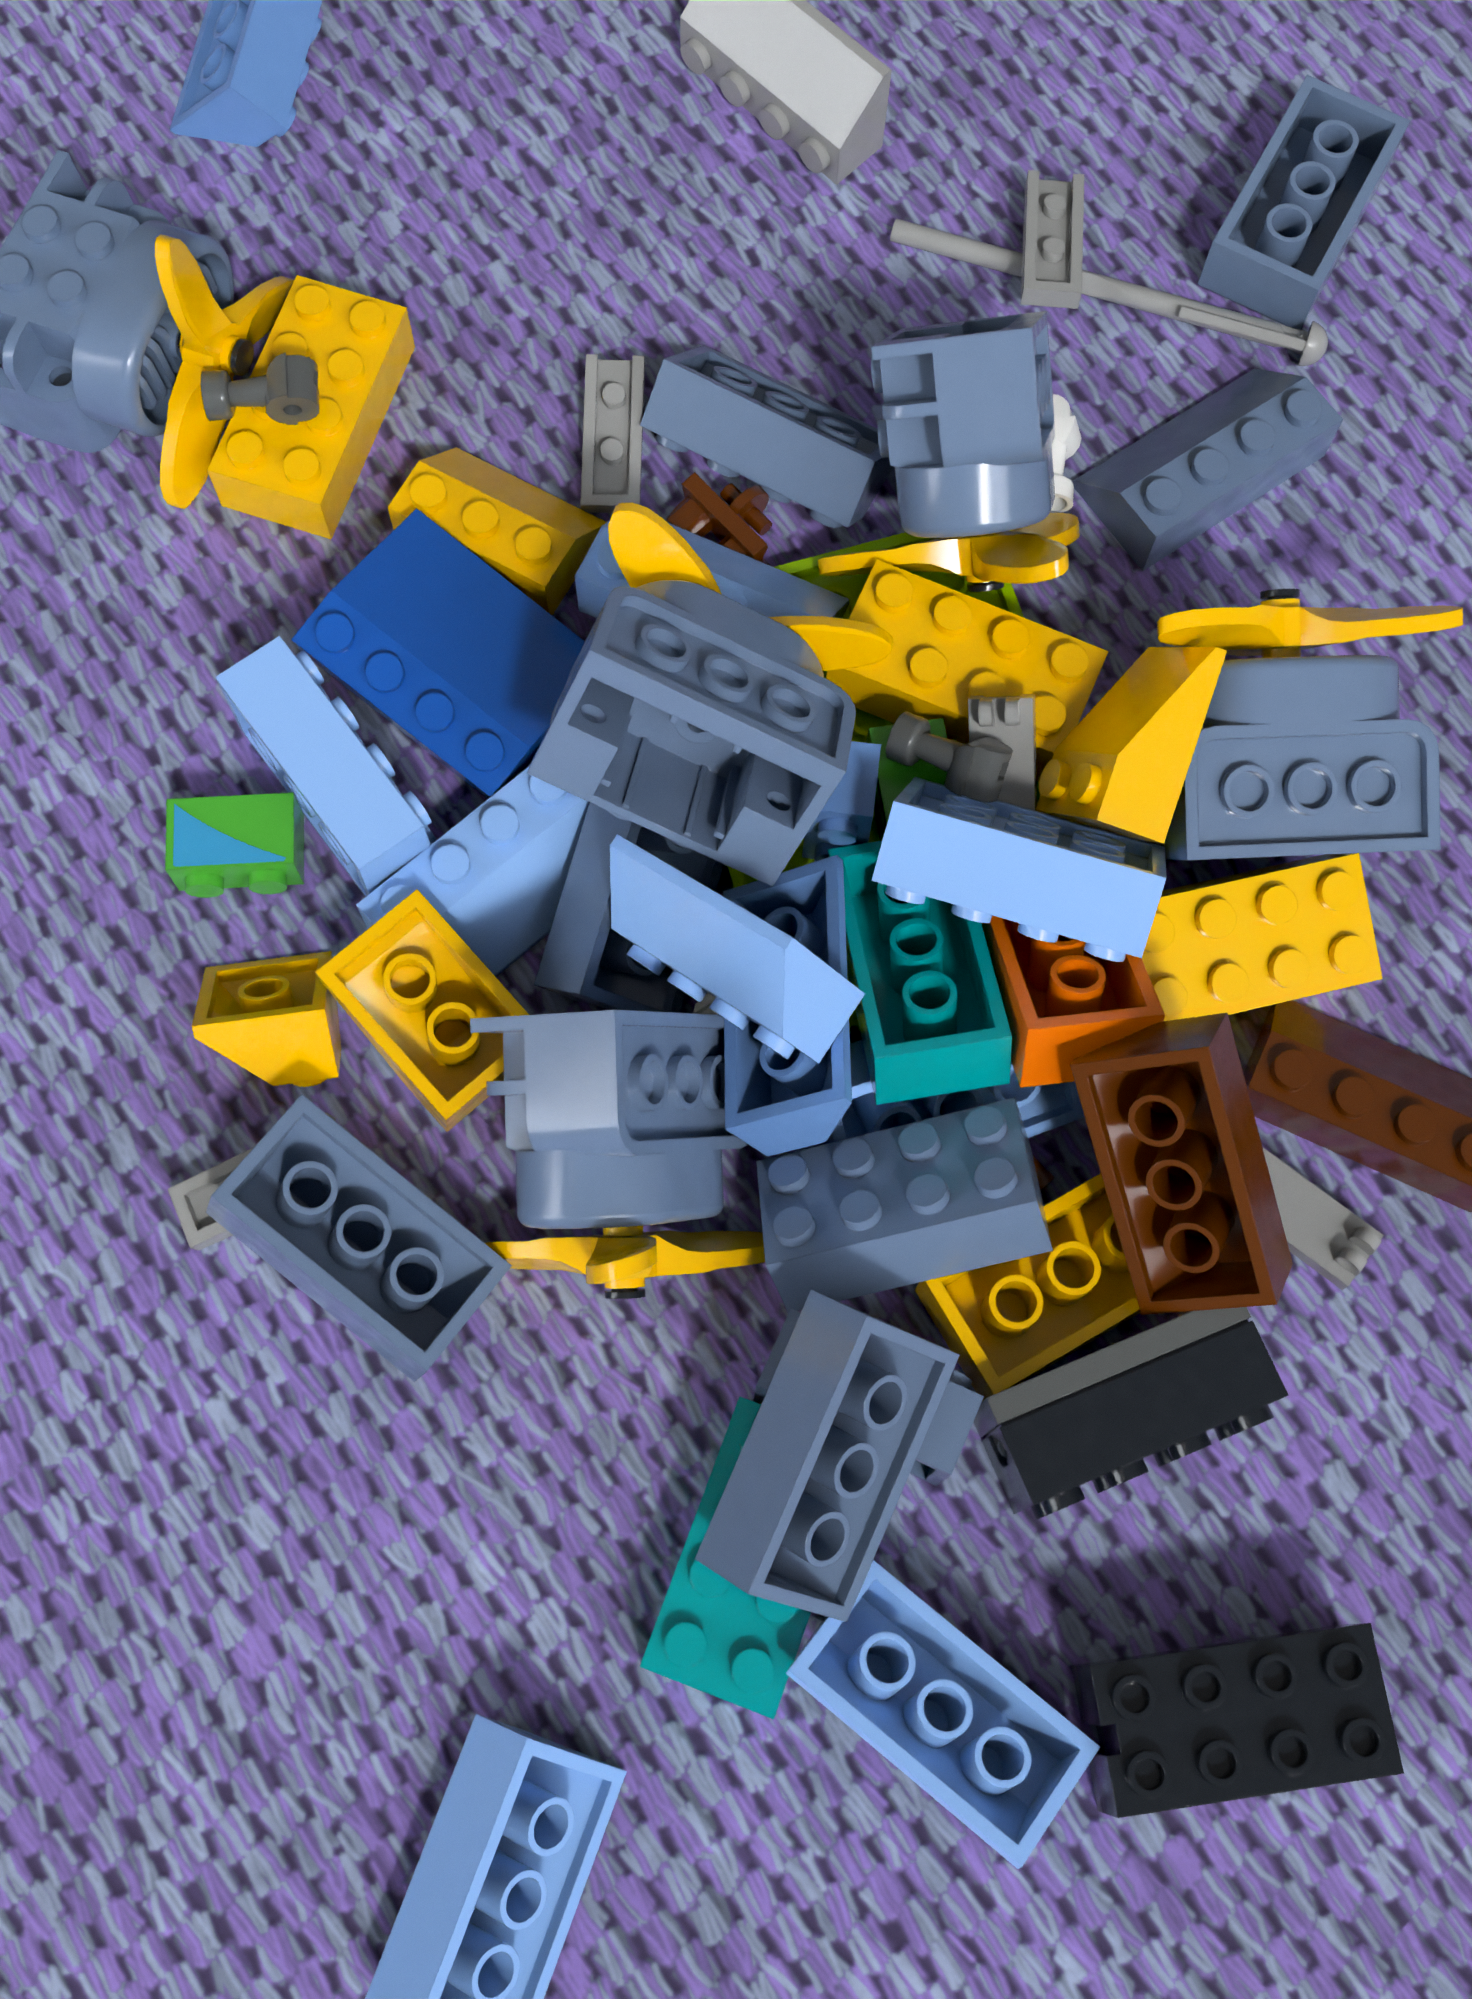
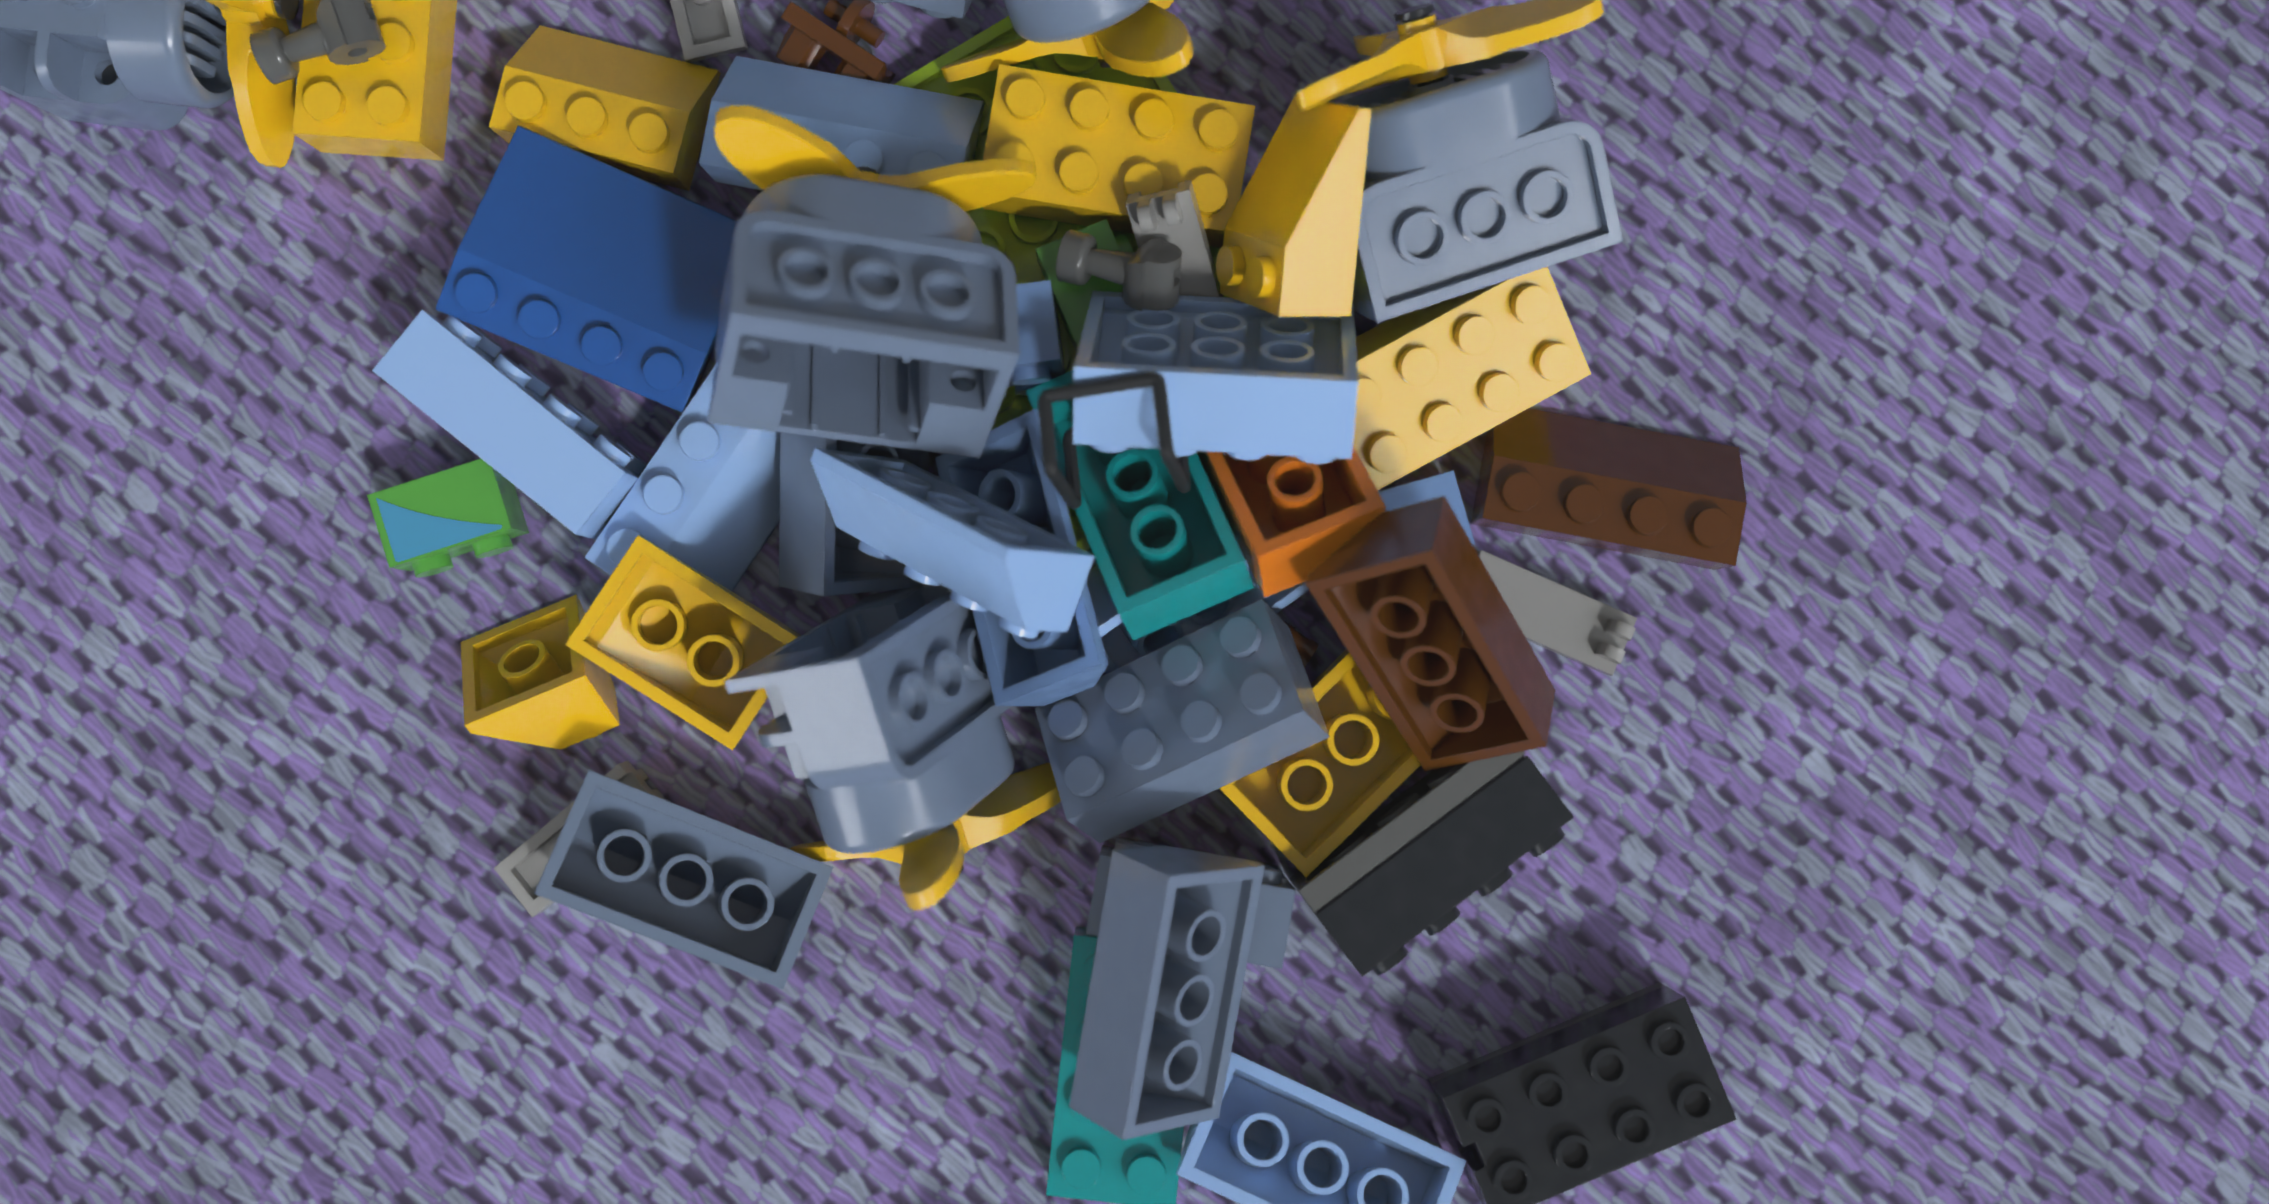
camera: 10 degrees left, 15 degrees up
(856, 901) = (1070, 486): none -> black piece

